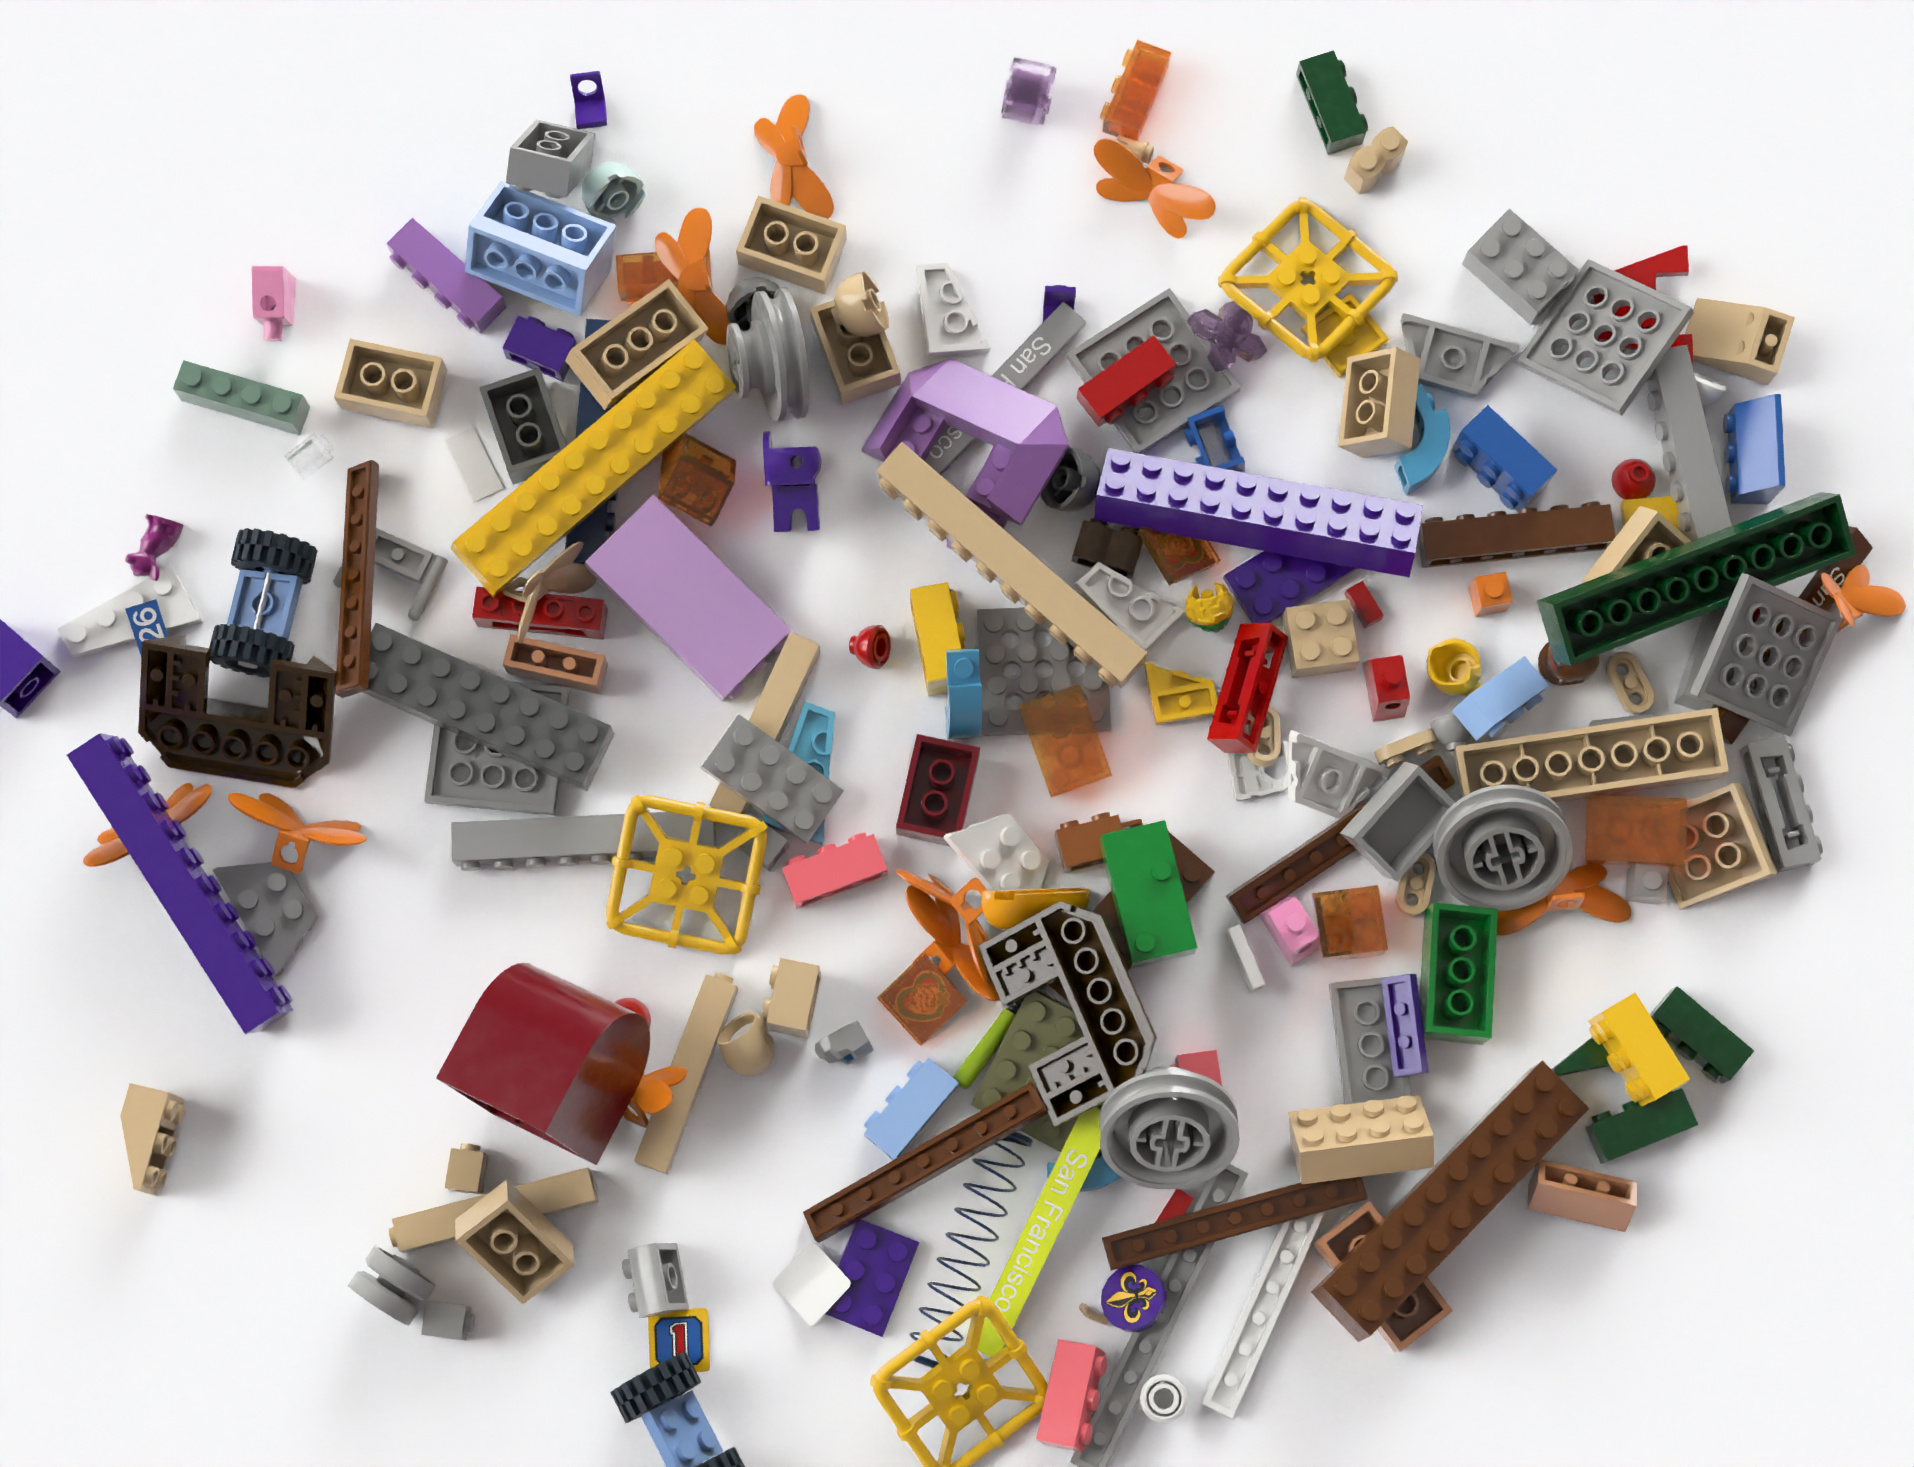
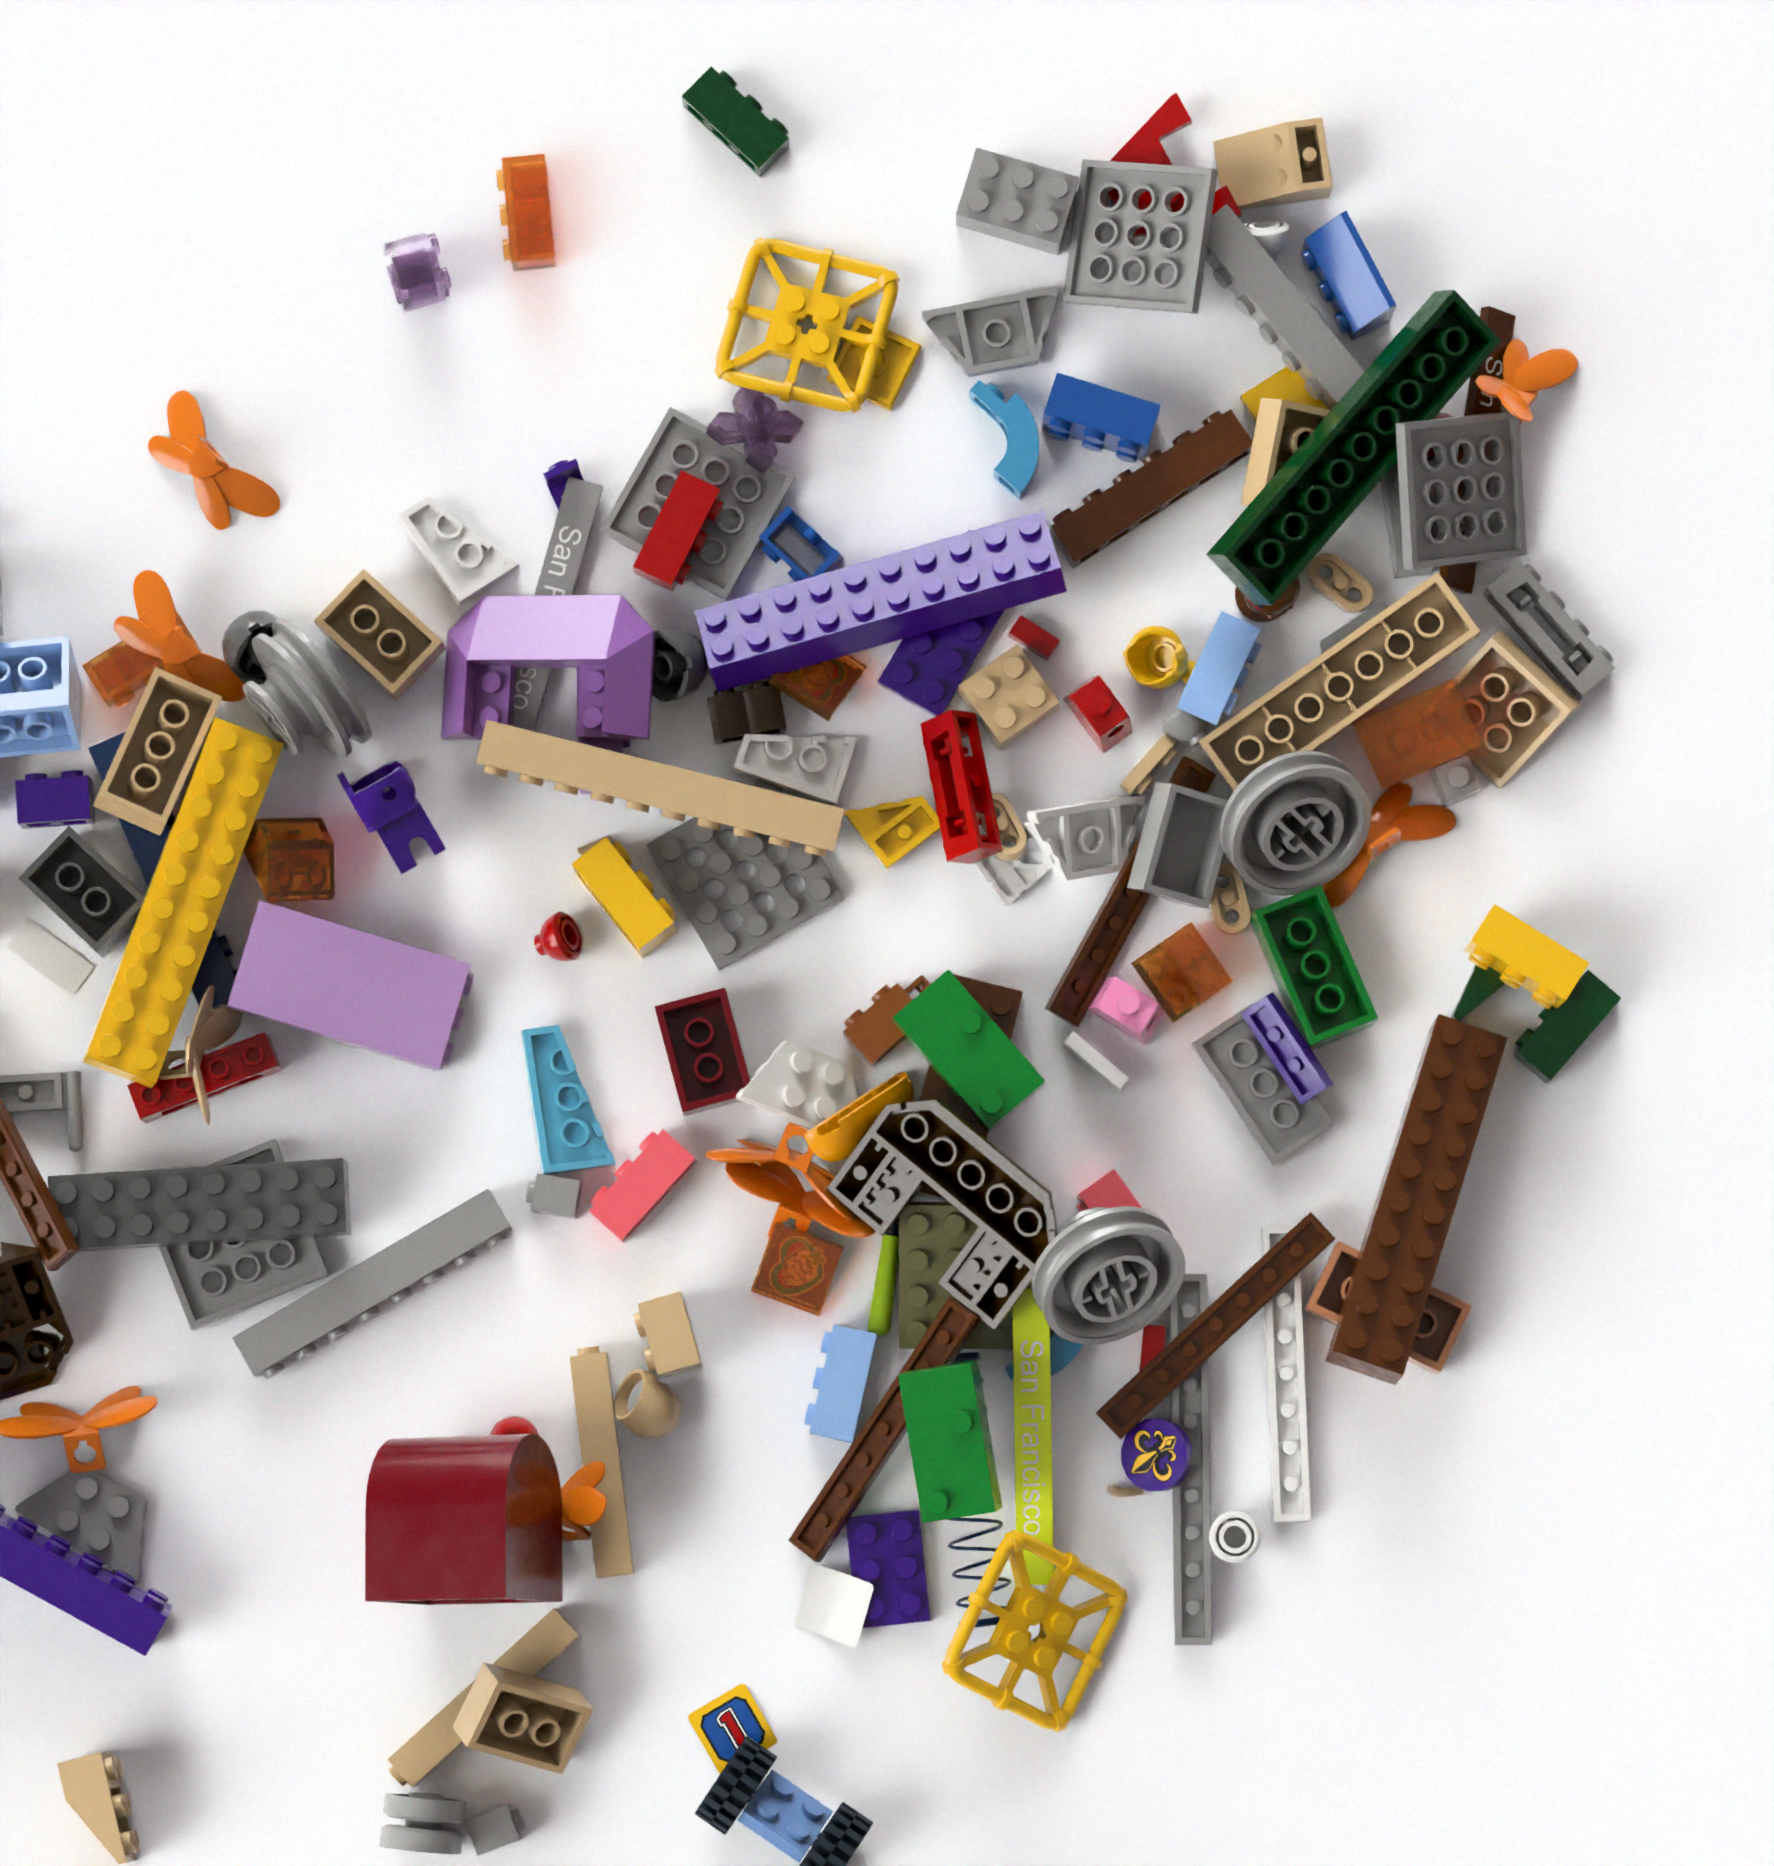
camera: 25 degrees left, 5 degrees up
(466, 1169) = (433, 1672): tan brick -> none
(555, 664) = (250, 1122): nougat brick -> none
(611, 191) = (39, 597): light aqua cylinder -> none
(656, 1279) = (679, 1682): light grey brick -> none
(673, 856) = (476, 1254): yellow plate -> none
(772, 779) = (532, 1126): light grey plate -> none
(776, 704) = (496, 1078): tan brick -> none
(791, 244) = (257, 560): tan brick -> none
(844, 1045) = (743, 1354): light grey rock -> none
(859, 306) = (366, 596): tan cylinder -> none
(963, 694) = (681, 942): dark azure arch -> none
(972, 1198) = (950, 1441): none -> green brick
(1064, 739) = (804, 935): clear orange brick -> none
(1071, 1396) = (1144, 1580): coral brick -> none
(1135, 183) = (576, 311): orange piece -> none
(1142, 151) = (557, 275): tan pin -> none
(1210, 611) = (883, 727): yellow piece -> none
(1361, 1139) = (1300, 1184): tan brick -> none
(1375, 160) = (809, 167): tan brick -> none
(1379, 402) = (945, 422): tan brick -> none
(1490, 594) = (1156, 563): orange brick -> none
(1582, 1195) = (1542, 1126): nougat brick -> none
(1633, 479) = (1241, 367): red brick -> none
(1700, 1036) = (1580, 907): dark green brick -> none

